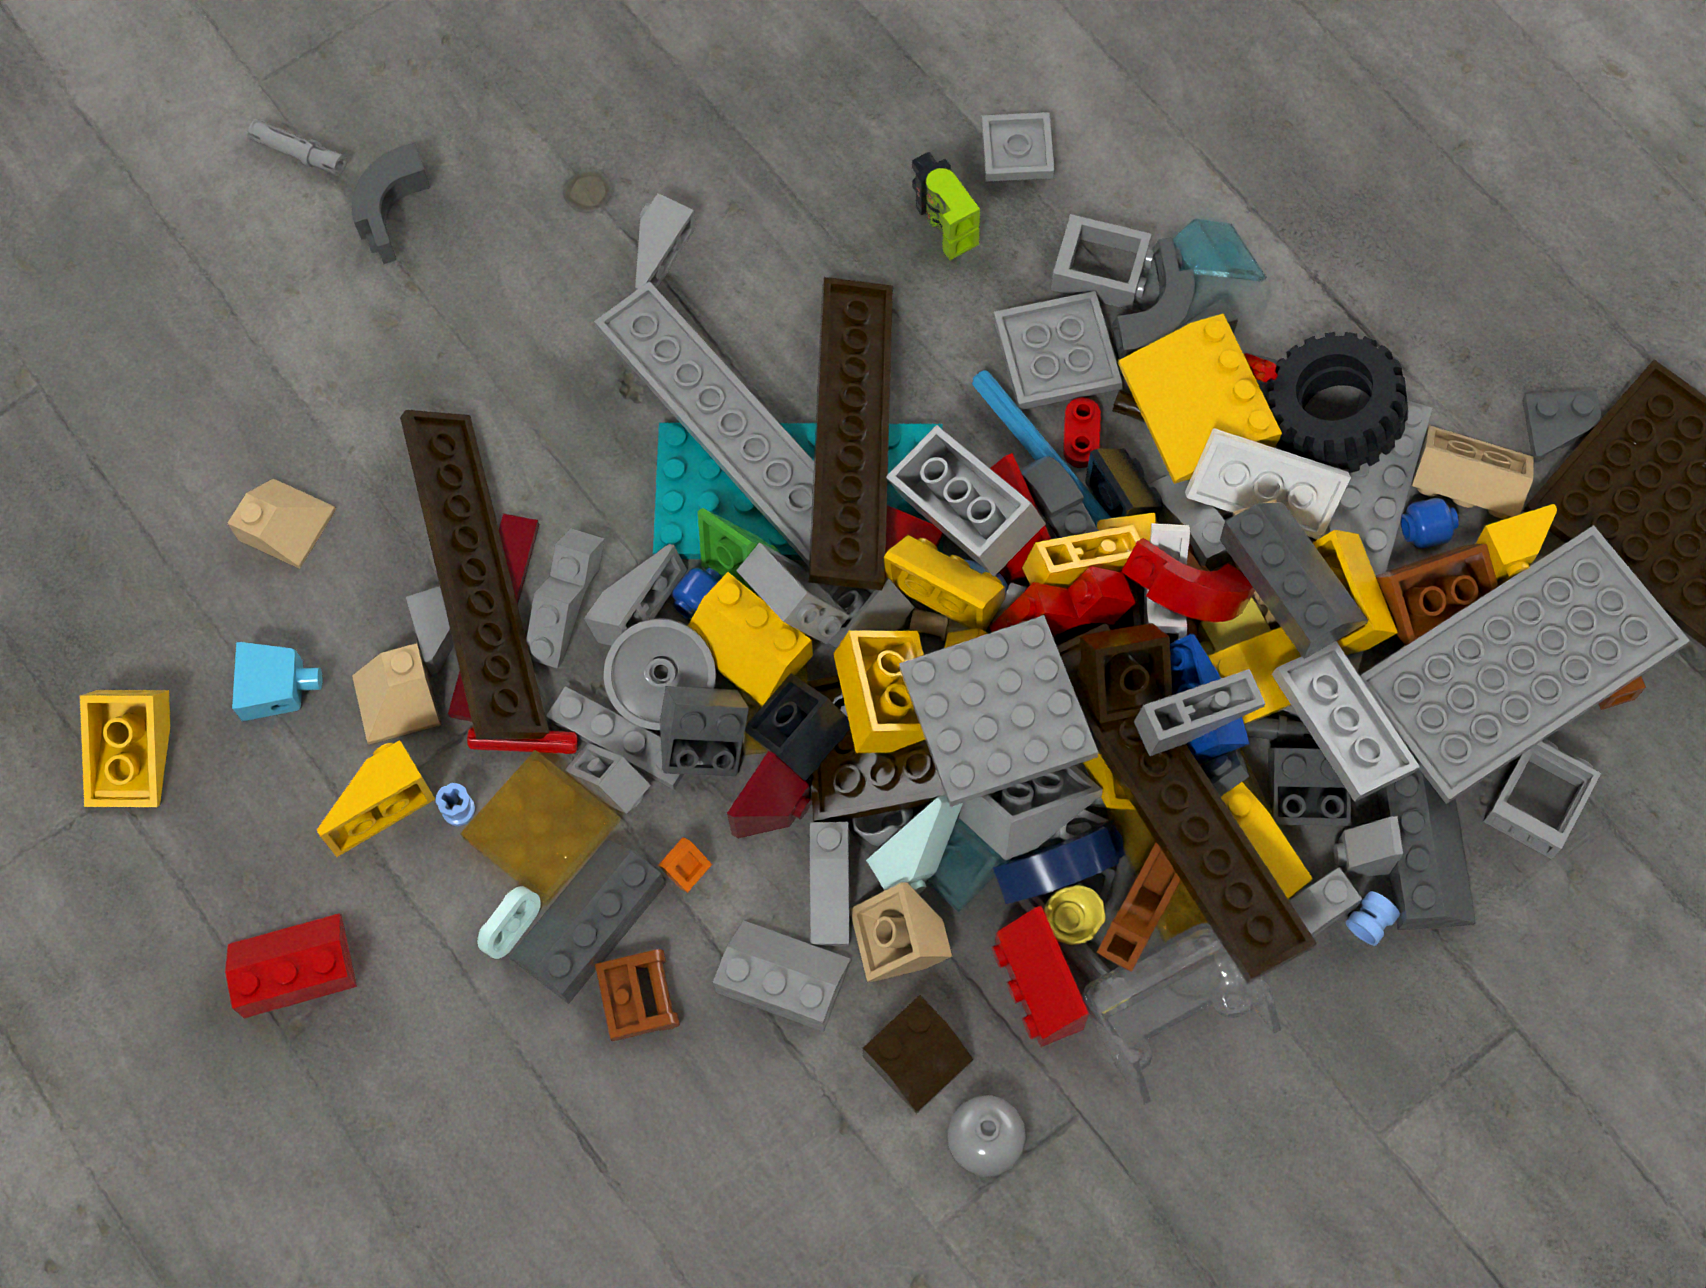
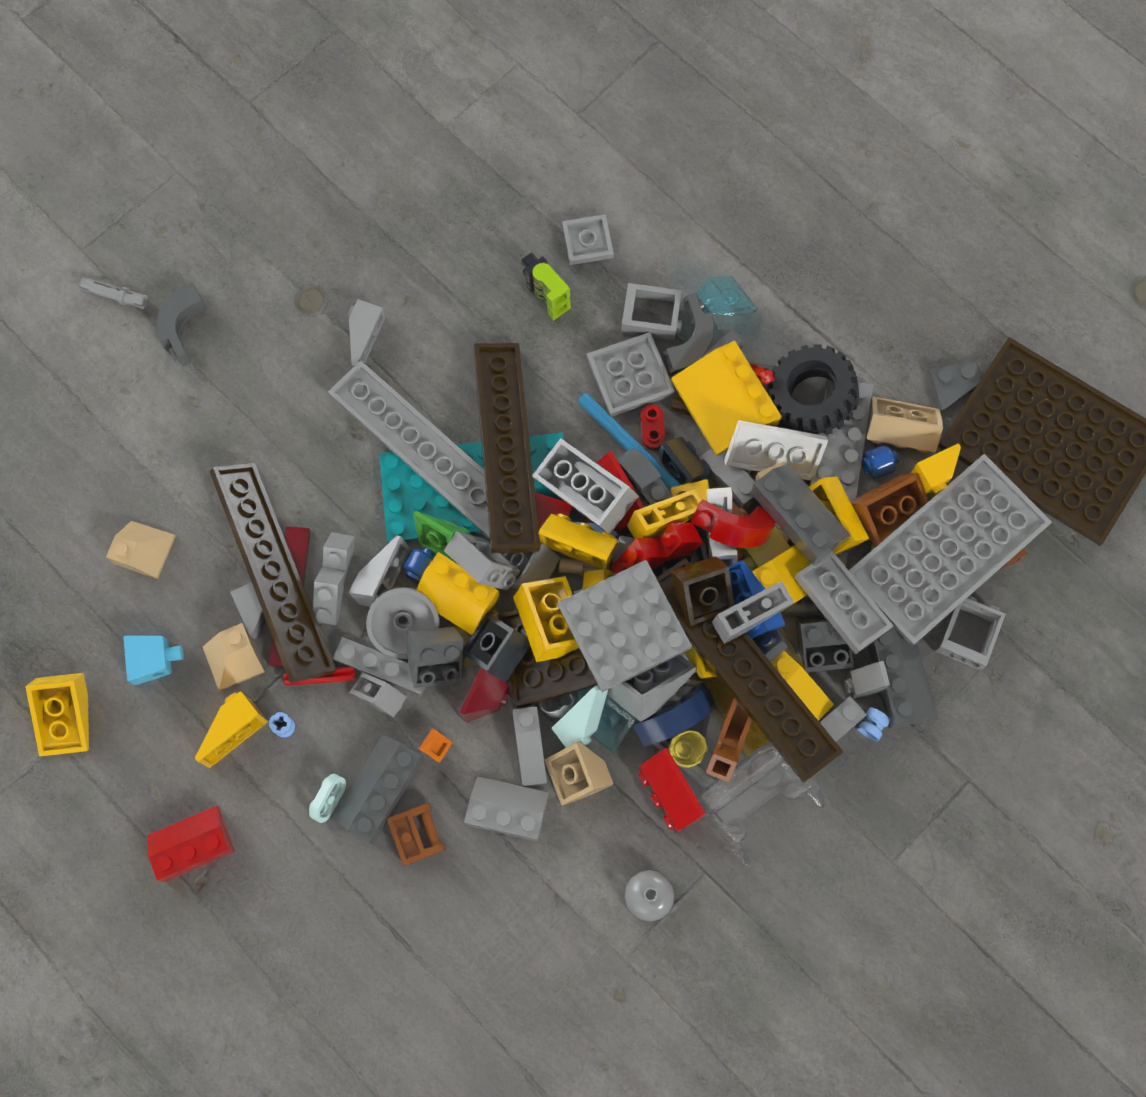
camera: 10 degrees left, 5 degrees up
(540, 827) = (339, 732): clear yellow plate -> none
(917, 1054) = (599, 850): dark brown slope -> none

